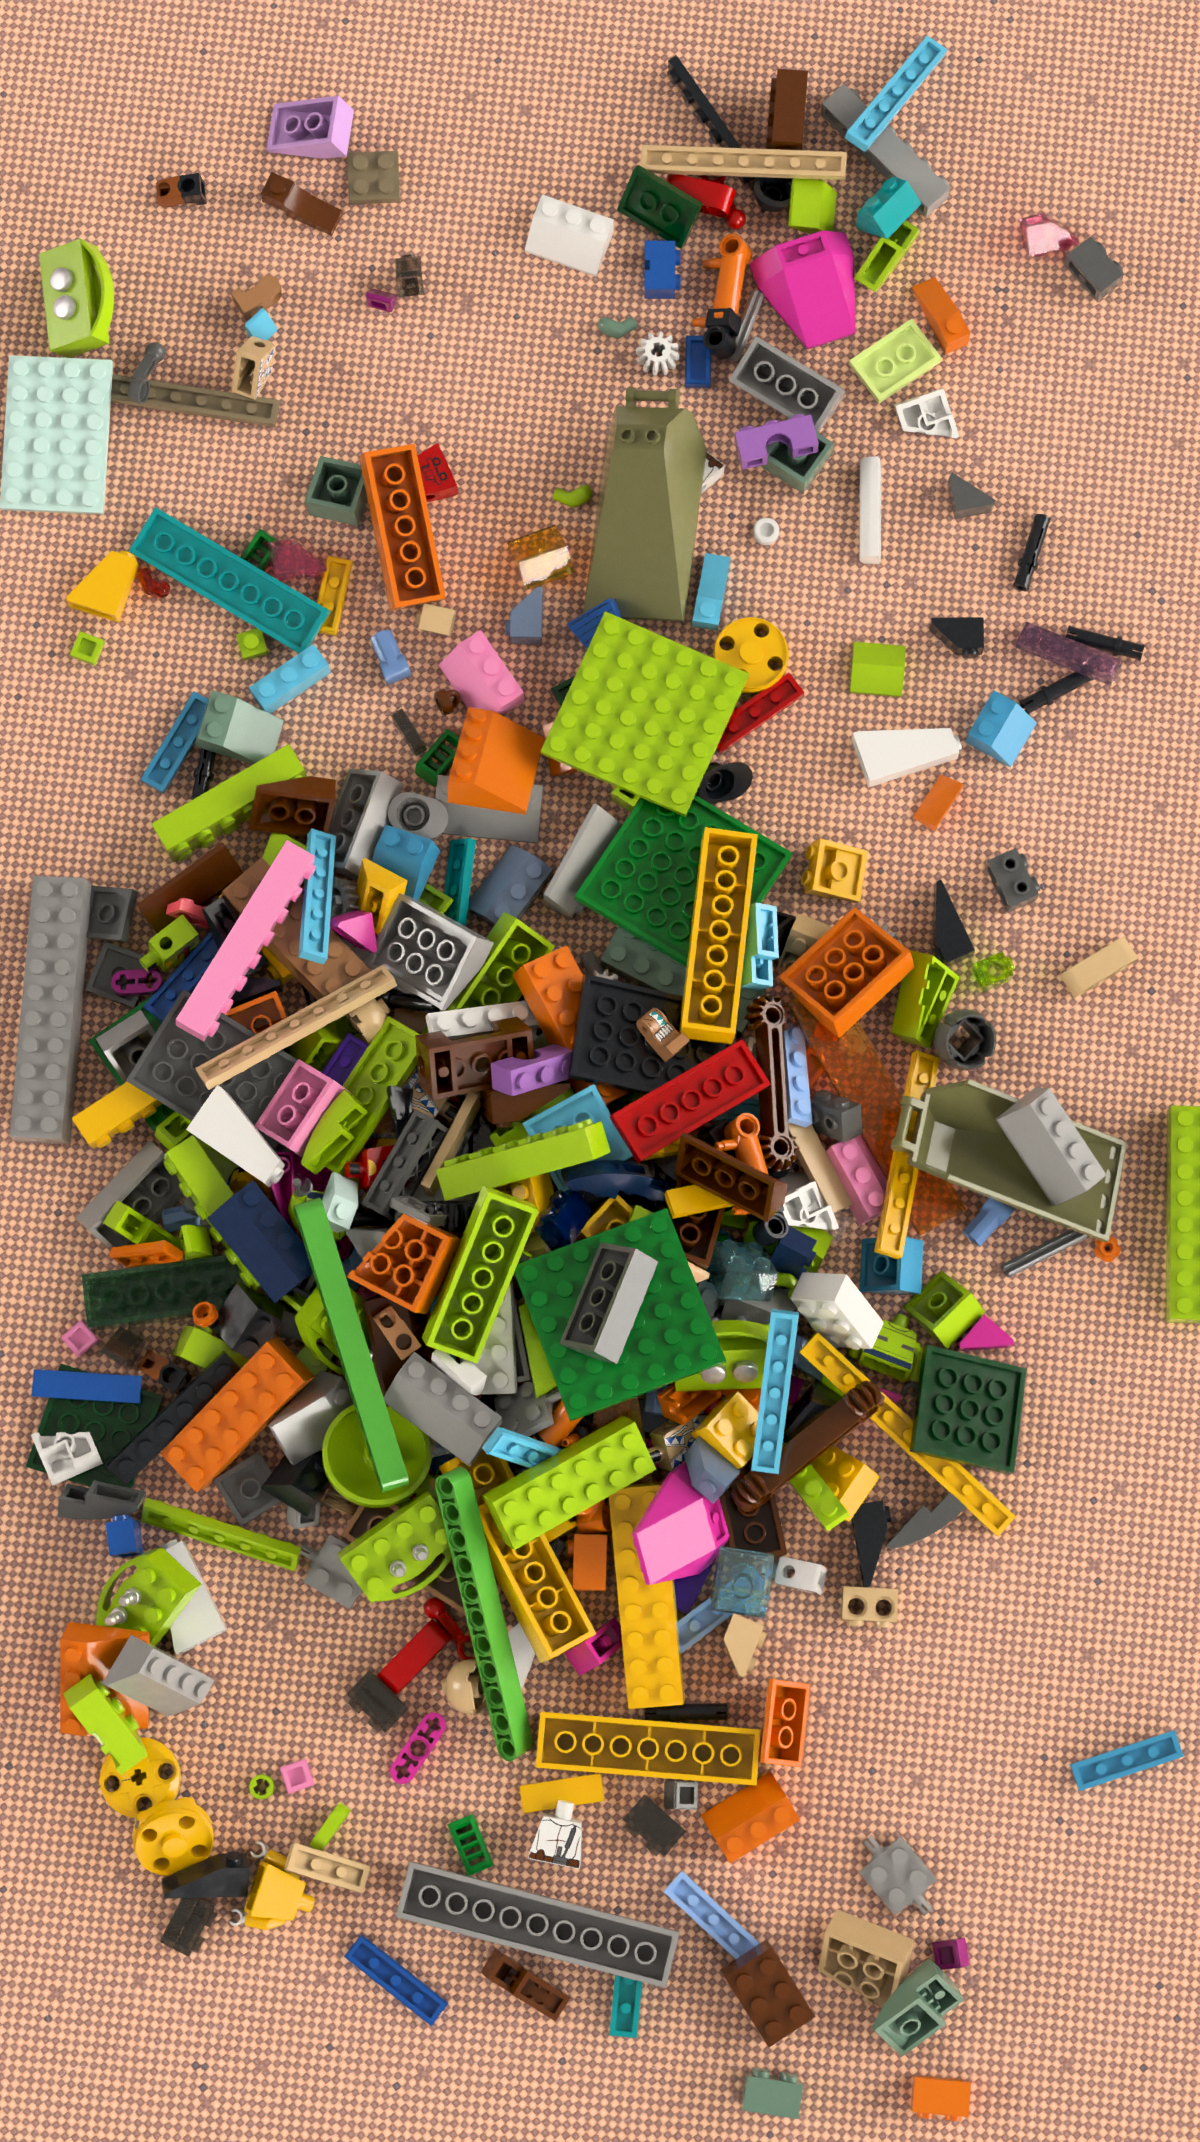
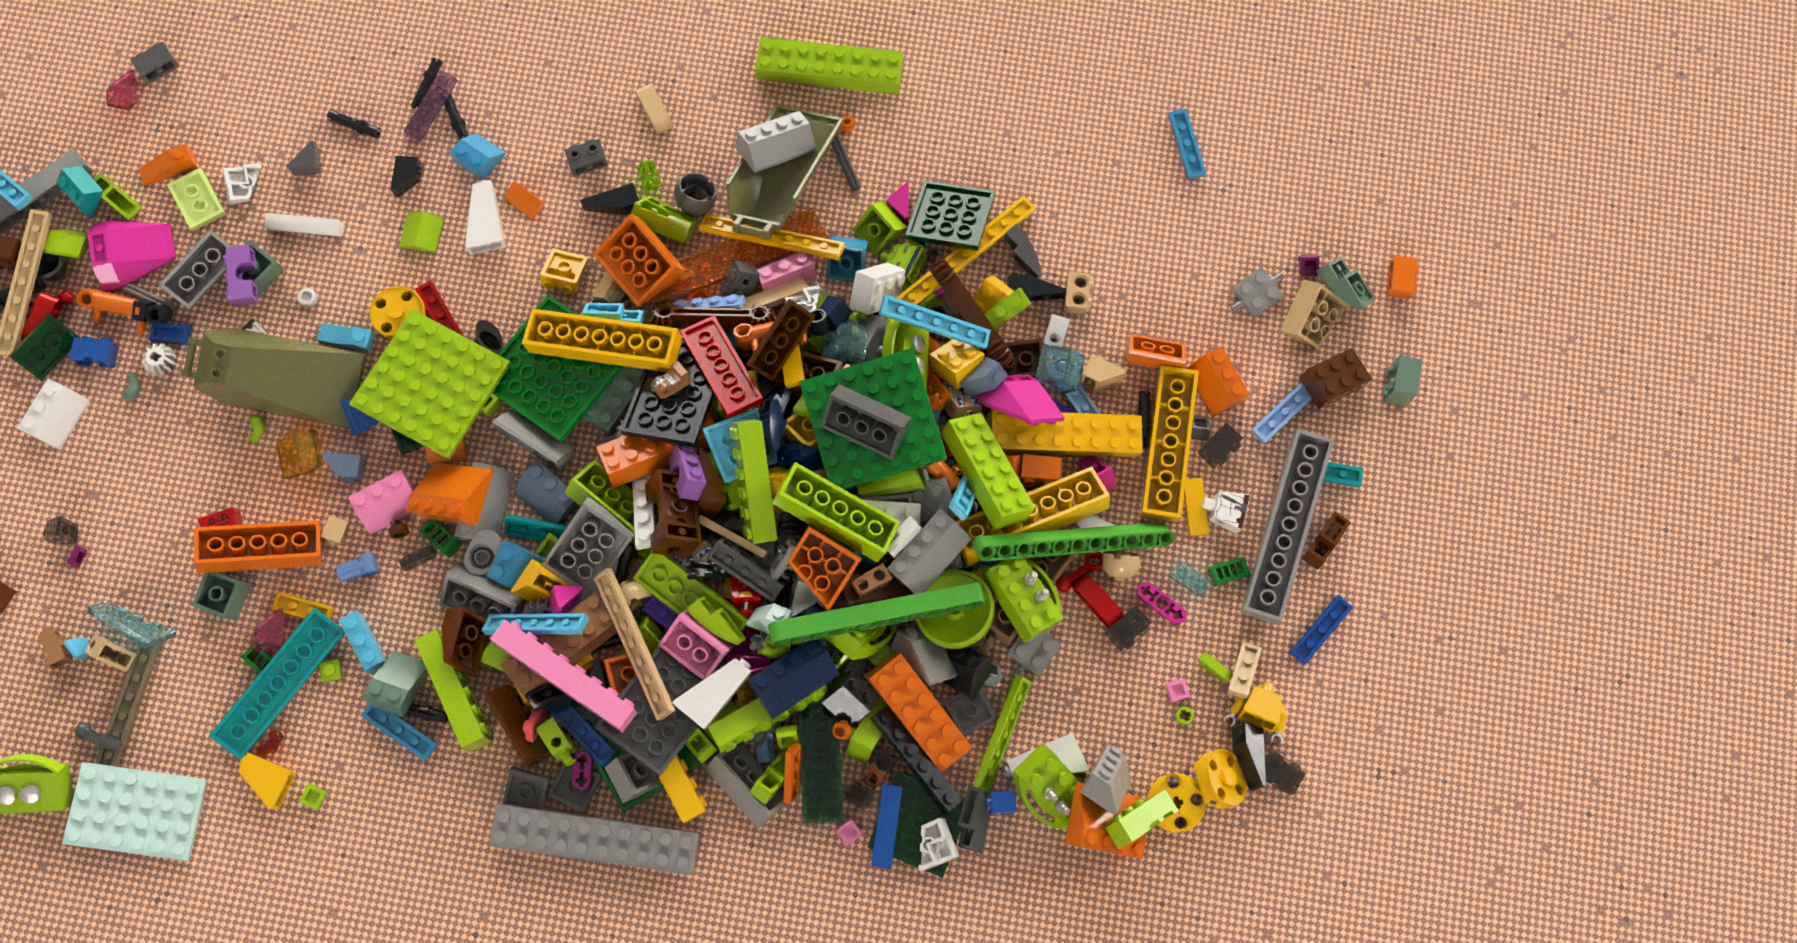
camera: 90 degrees left, 5 degrees down
(291, 385) = (130, 625): none -> clear light blue wing
(455, 1789) = (1191, 579): none -> clear light blue plate
(990, 1217) = (817, 191): medium blue piece -> none

